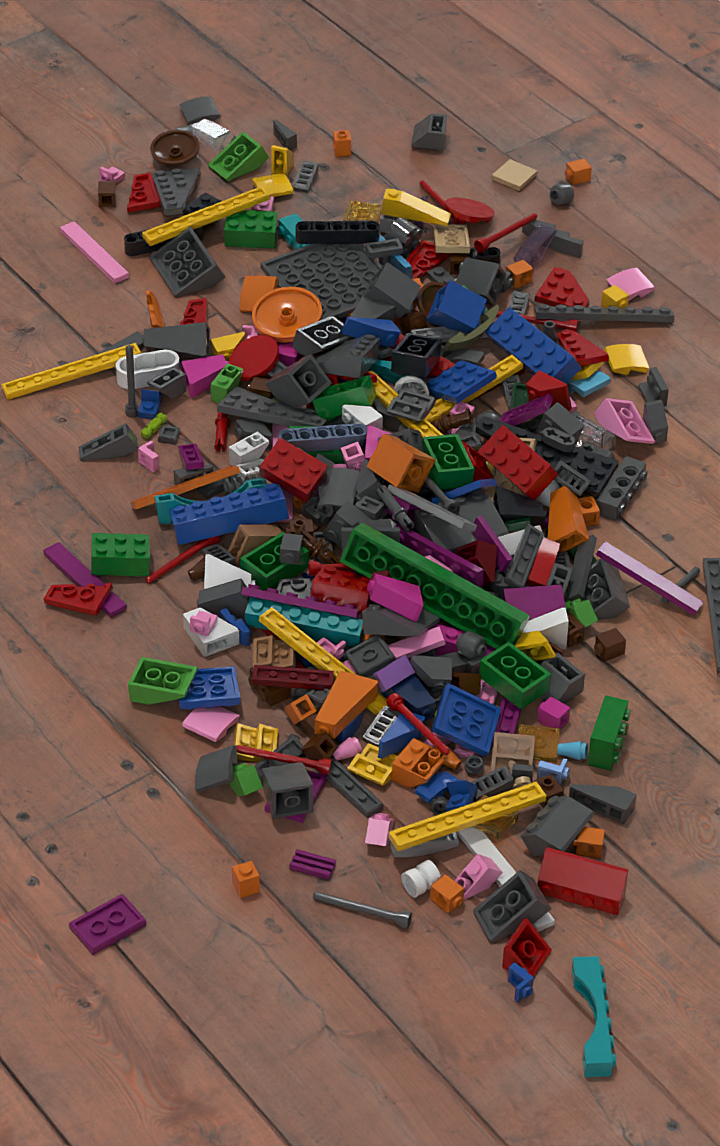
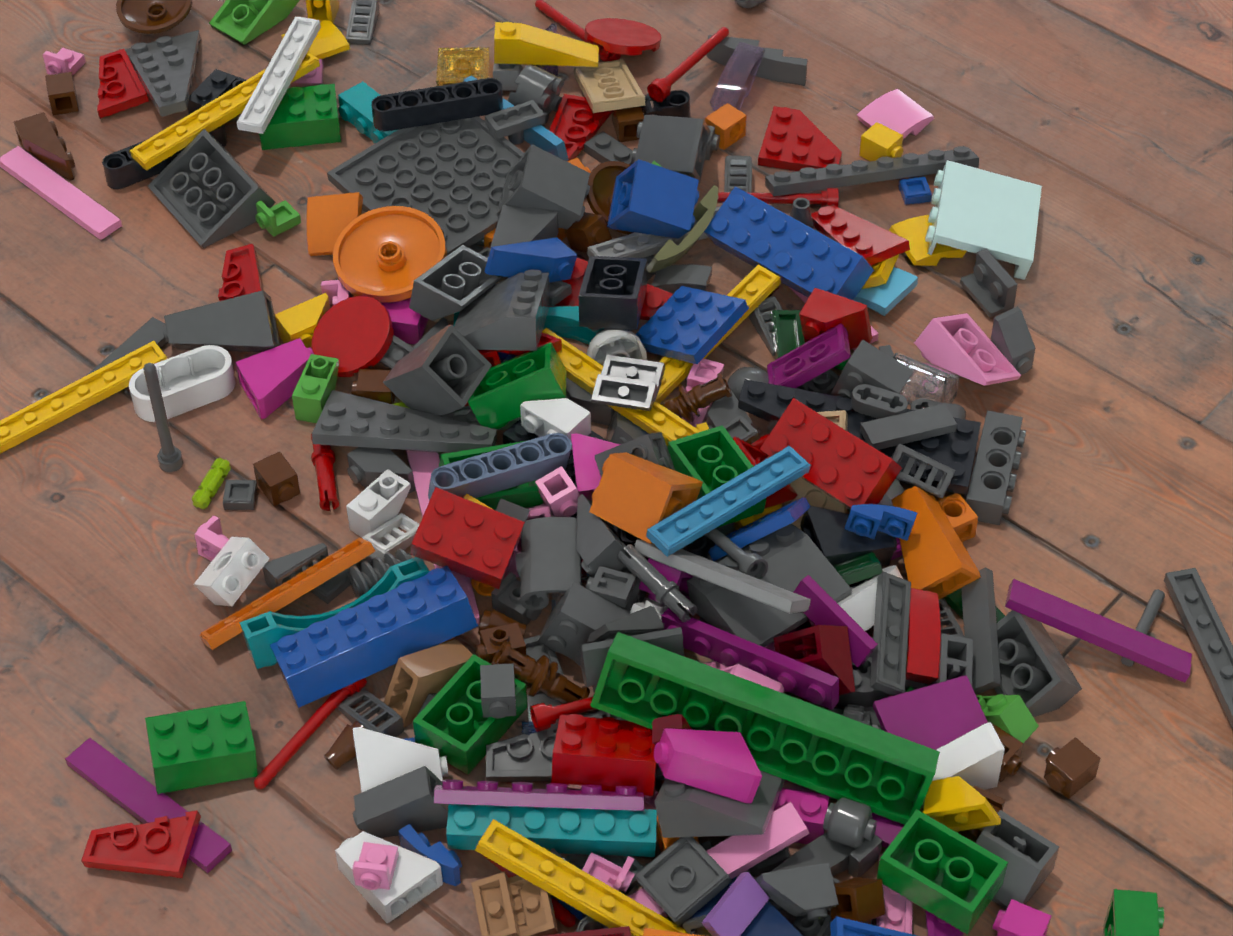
camera: 10 degrees left, 5 degrees up
(89, 220) = (41, 141): none -> reddish brown slope
(110, 445) = (145, 533): dark grey slope -> none
(150, 404) = (197, 445): blue slope -> none
(155, 312) = (177, 285): orange slope -> none
(155, 470) = (231, 571): none -> white brick
(170, 382) = (223, 404): dark grey slope -> none
(191, 456) = (286, 533): magenta tile -> none
(192, 428) = (276, 478): none -> reddish brown brick
(225, 286) = (277, 218): none -> bright green bracket
(243, 200) = (278, 75): none -> white tile
(447, 471) = (727, 501): none -> dark azure tile
(533, 497) = (868, 518): none -> blue slope
(572, 454) = (908, 427): none -> dark grey tile
(628, 329) = (915, 190): none -> blue tile
(665, 346) = (985, 212): none -> light aqua panel

